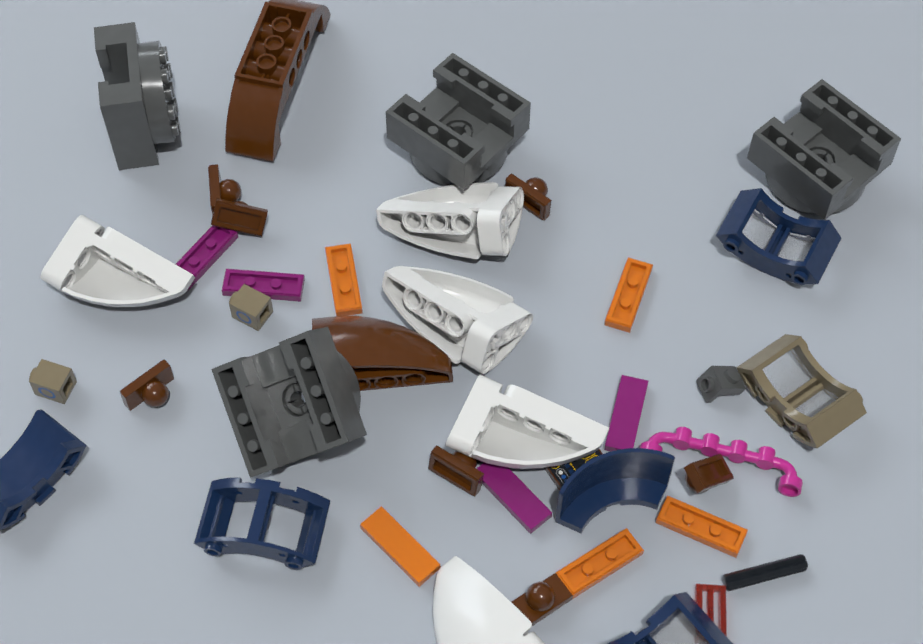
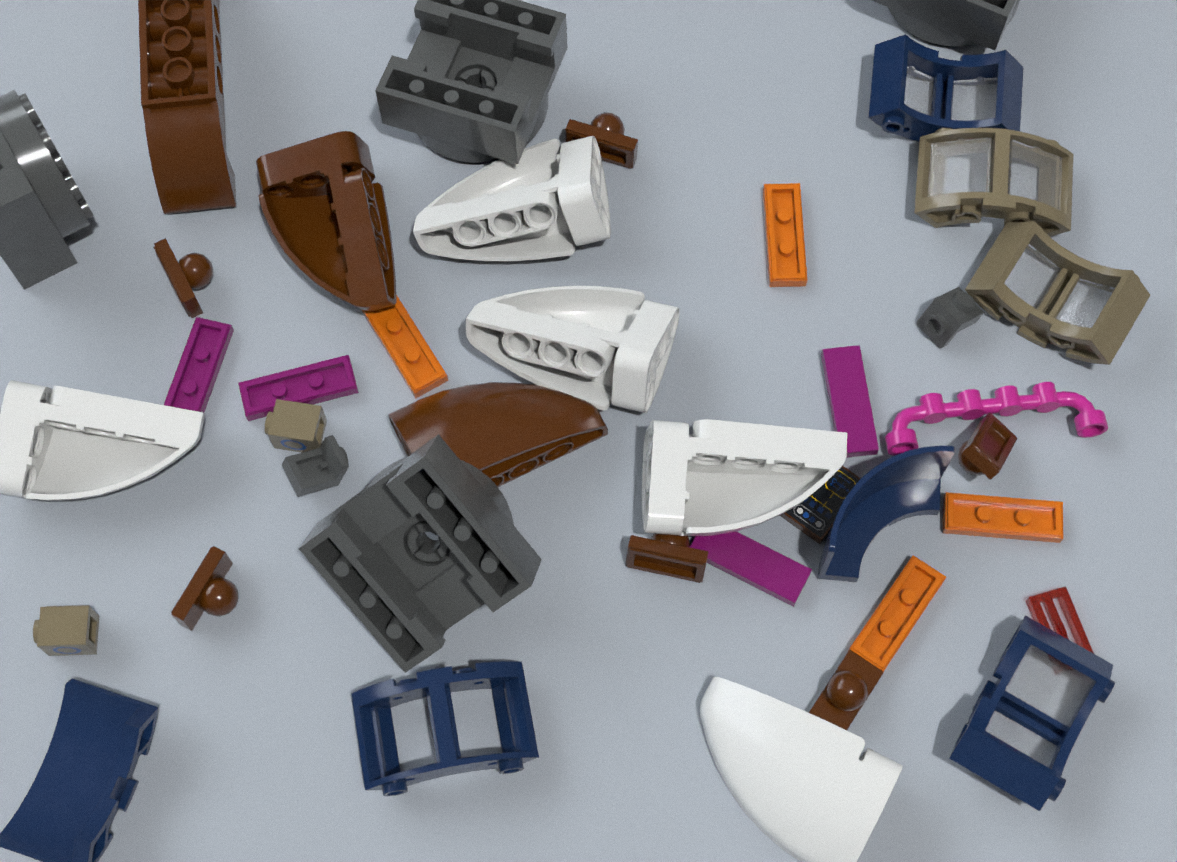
camera: 20 degrees left, 10 degrees up
(239, 216) = (226, 303): reddish brown tile -> none
(252, 337) = (317, 468): none -> dark grey bracket
(329, 184) = (332, 217): none -> reddish brown panel
(400, 546) = (635, 687): orange tile -> none
(765, 572) = (1105, 550): black axle -> none
(789, 300) = (995, 176): none -> window

